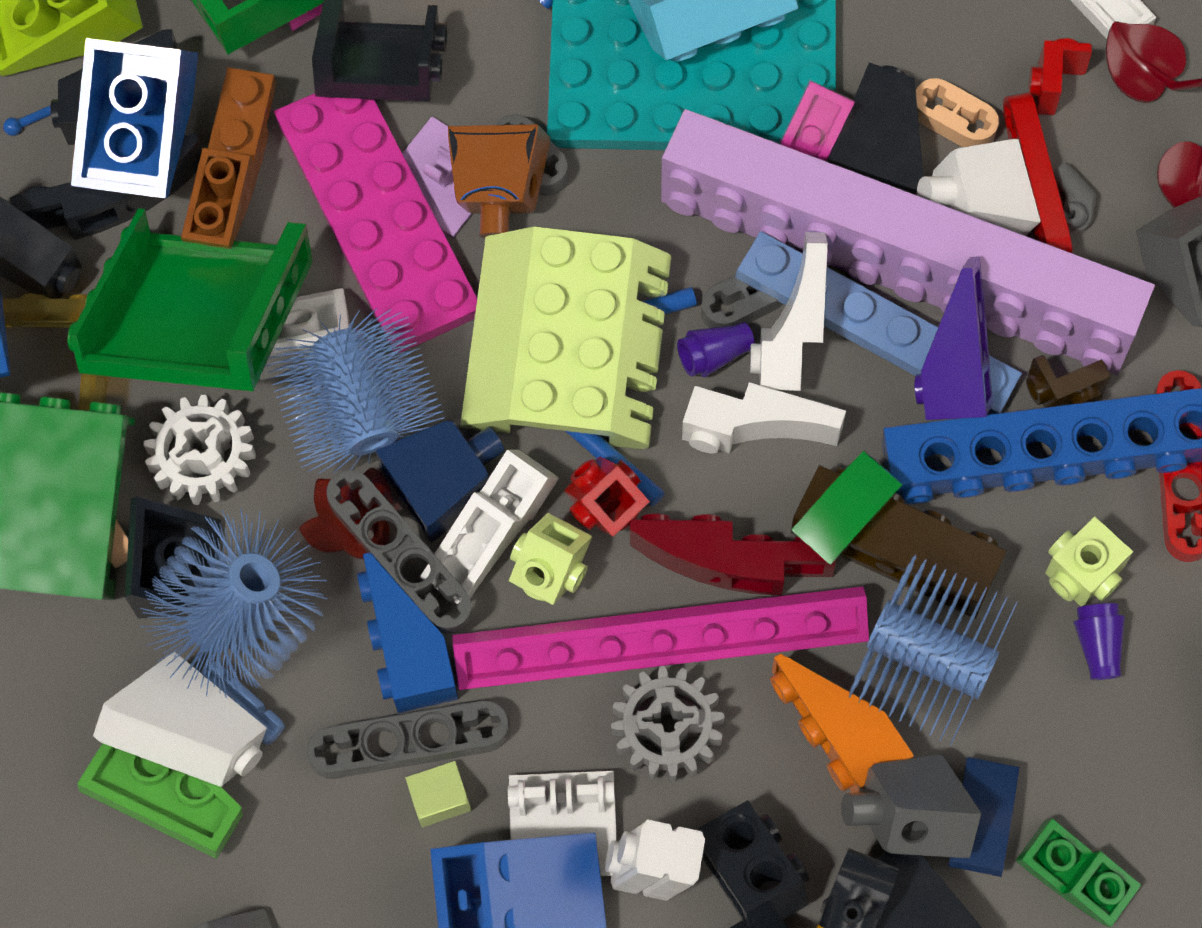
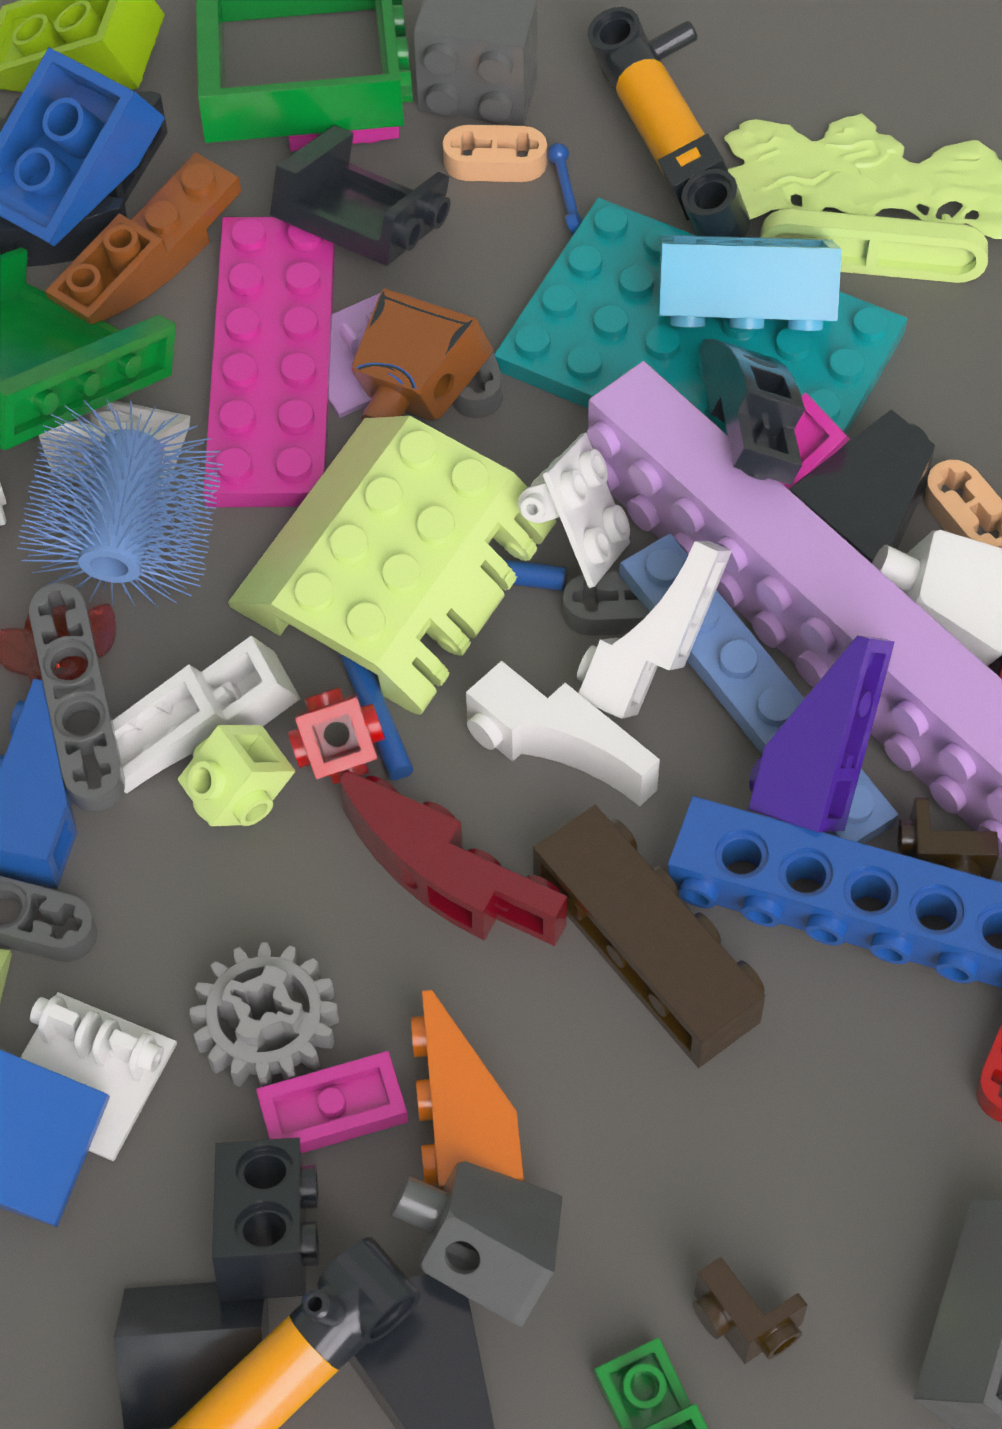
camera: 25 degrees right, 10 degrees down
(438, 472) = (169, 627): dark blue torso -> none
(655, 860) = (149, 1150): white brick -> none
(661, 638) = (317, 920): dark pink plate -> none
(680, 235) = (579, 494): none -> white hinge
(712, 348) = (551, 637): dark purple cone -> none
(749, 763) = (334, 1103): none -> dark pink plate
(785, 104) = (759, 407): none -> black slope
(847, 507) = (594, 856): green slope -> none
(929, 647) = (607, 1061): medium blue piece -> none
(993, 792) = (584, 1288): dark blue slope -> none
(1087, 563) = (860, 1057): yellowish green brick -> none
(1092, 779) = (730, 1311): none -> dark brown bracket
(1101, 639) = (835, 1153): dark purple cone -> none

